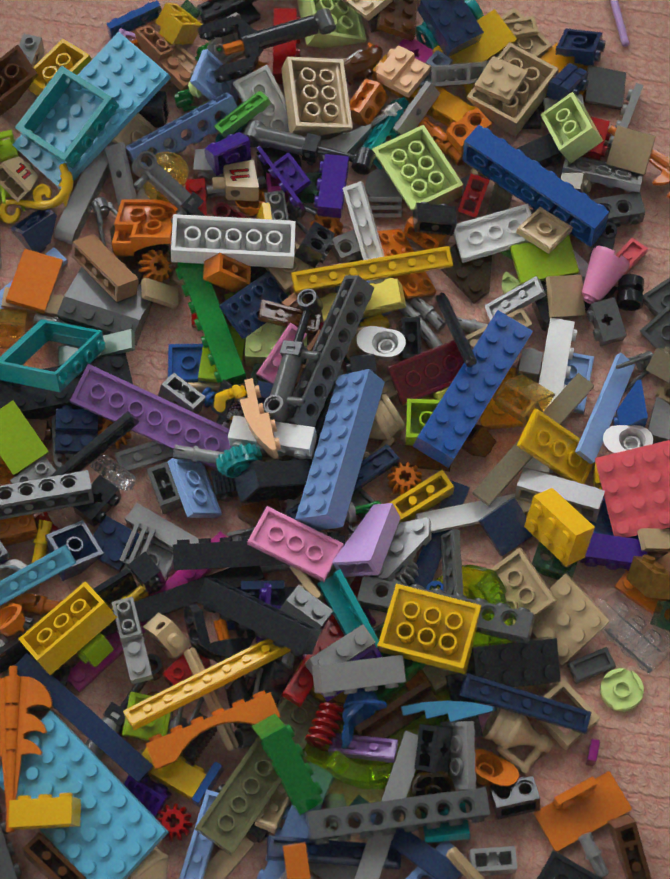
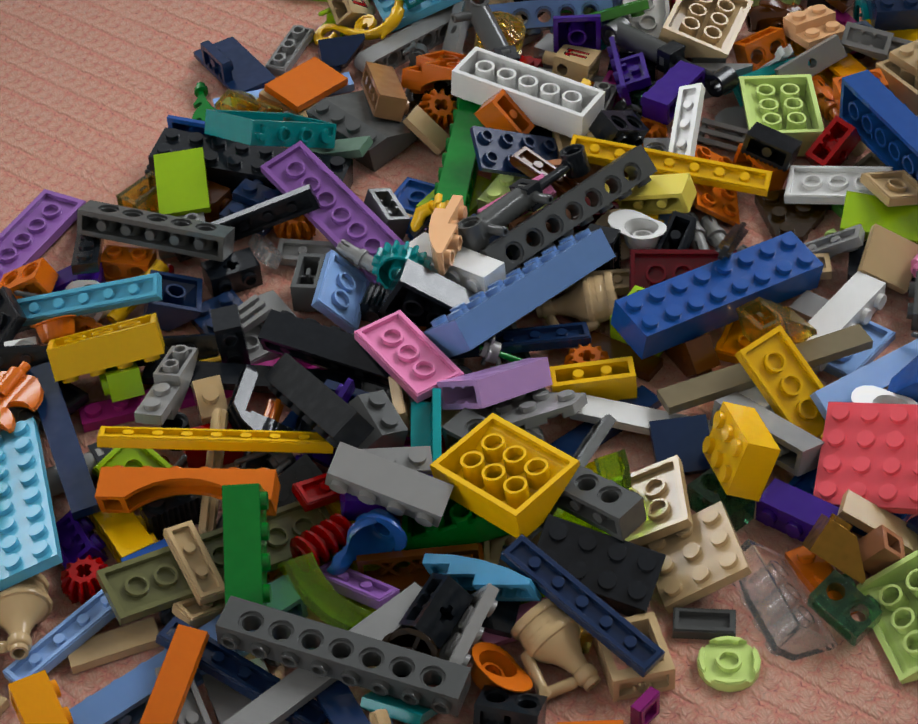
camera: 30 degrees right, 25 degrees down
(253, 785) = (195, 562): none -> tan tile

